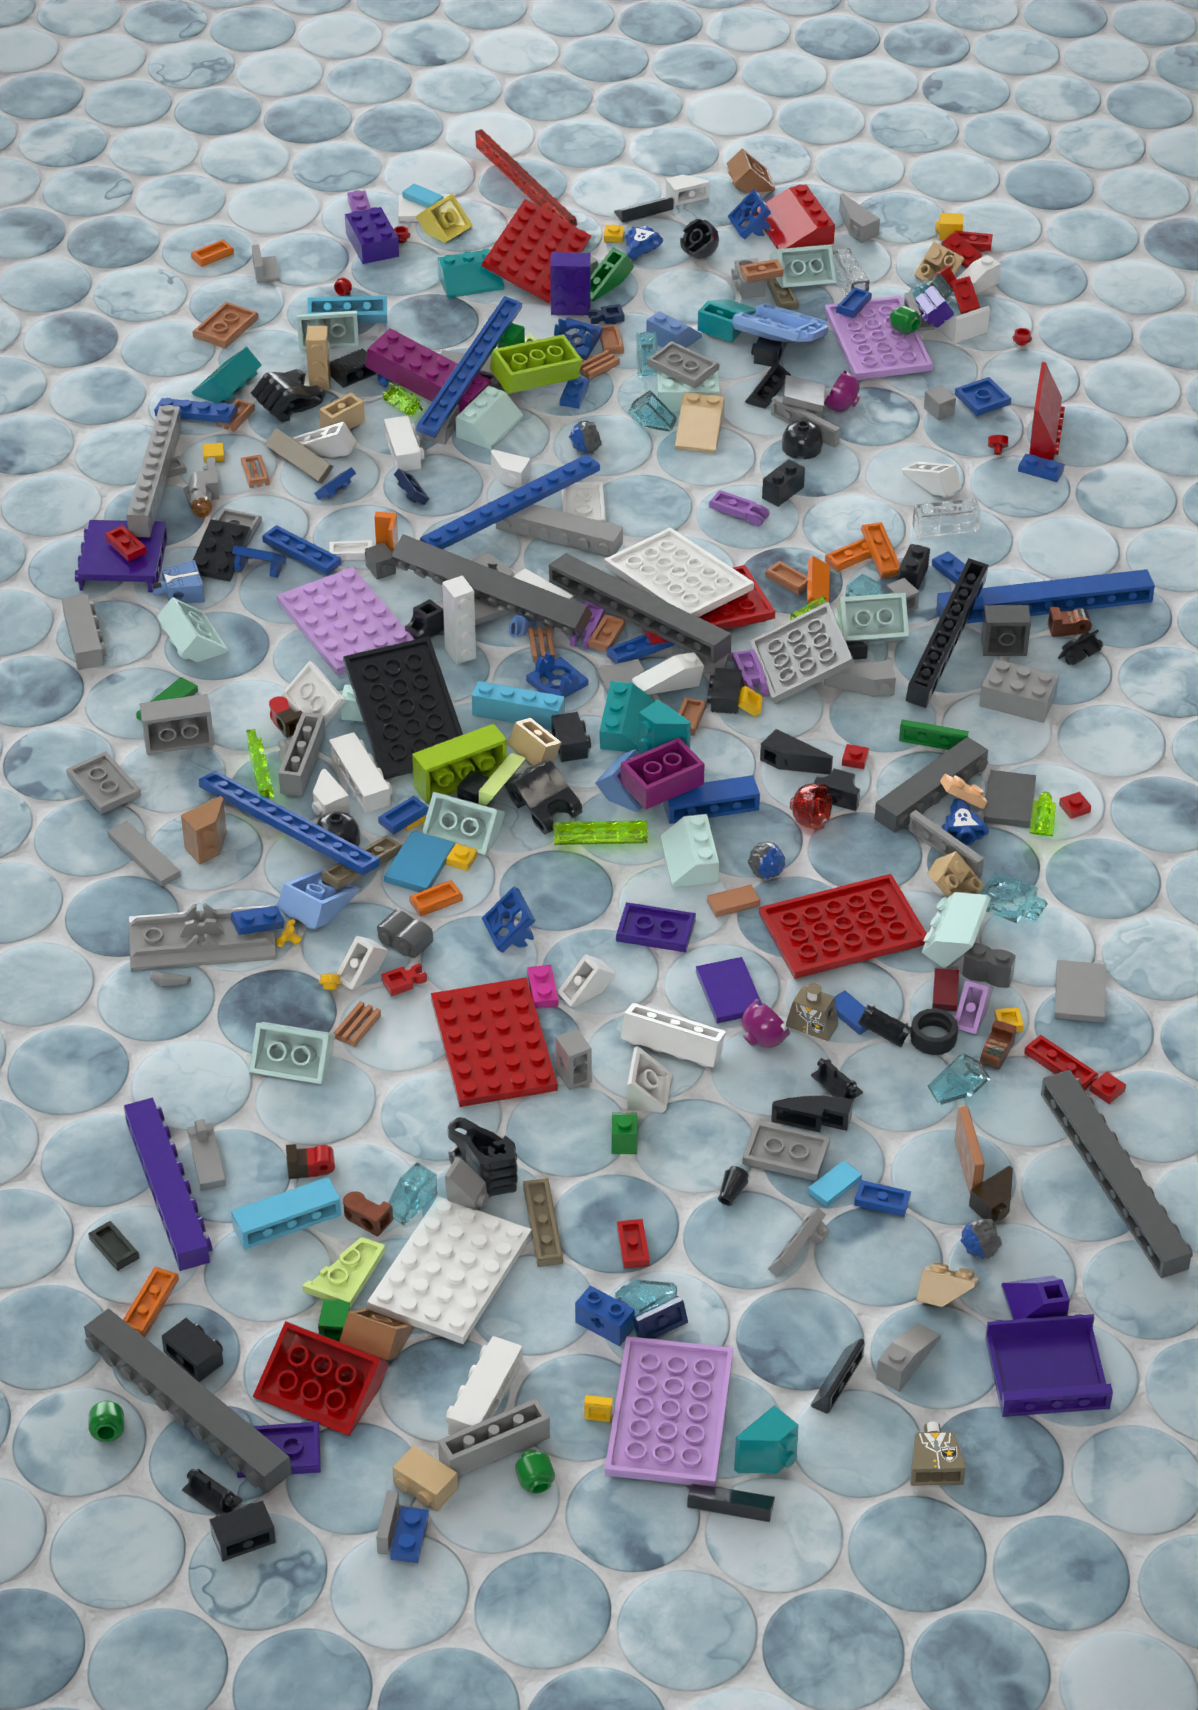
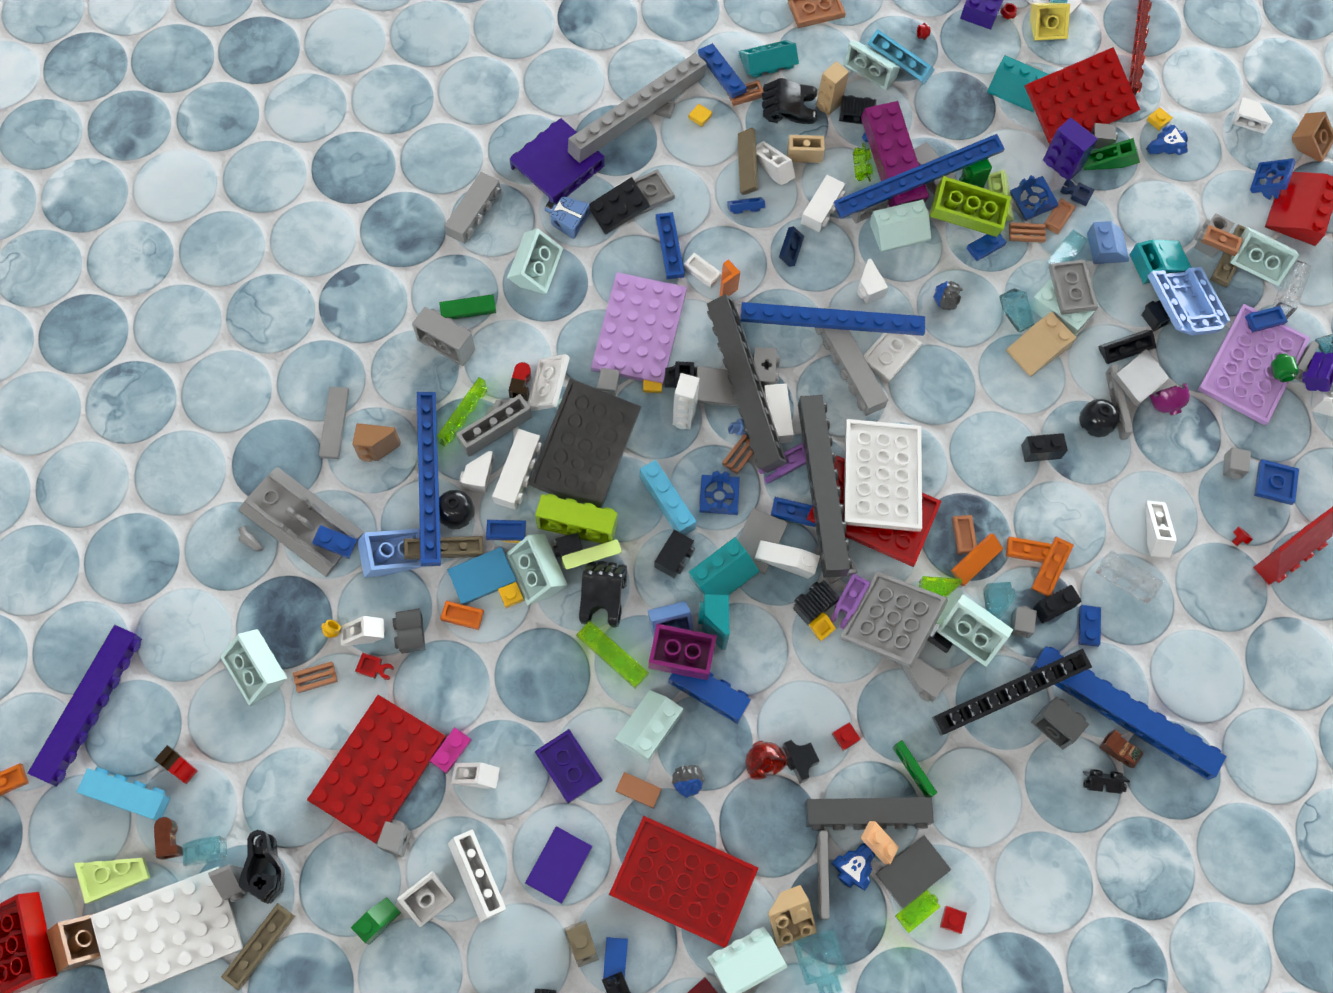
camera: 40 degrees right, 25 degrees up
(103, 782) = (365, 344): light grey plate -> none
(113, 1245) = (18, 723): pearl dark grey tile -> none
(125, 543) = (557, 157): red plate -> none
(203, 489) = (660, 142): light grey plate -> none
(206, 1155) = (131, 702): light grey hinge -> none
(243, 552) = (625, 226): blue piece -> none
(256, 480) = (709, 165): nougat tile -> none
(288, 935) = (345, 567): yellow plant -> none
(333, 1318) = (64, 907): green brick -> none
(379, 561) = (707, 293): dark grey brick -> none
(508, 908) = (474, 668): blue piece -> none
(533, 742) = (642, 542): tan brick -> none
(606, 633) = (789, 482): nougat plate -> none
(645, 209) = (1205, 111): black slope -> none
(693, 711) = (772, 601): nougat tile -> none
(699, 239) = (1210, 173): black cylinder -> none
(739, 507) = (992, 442): medium lavender hinge -> none
(763, 1026) = (540, 922): magenta cylinder -> none
(794, 755) = (800, 696): black slope -> none
(1019, 690) = (1016, 783): light grey brick -> none
(1041, 467) = (1253, 584): blue plate -> none

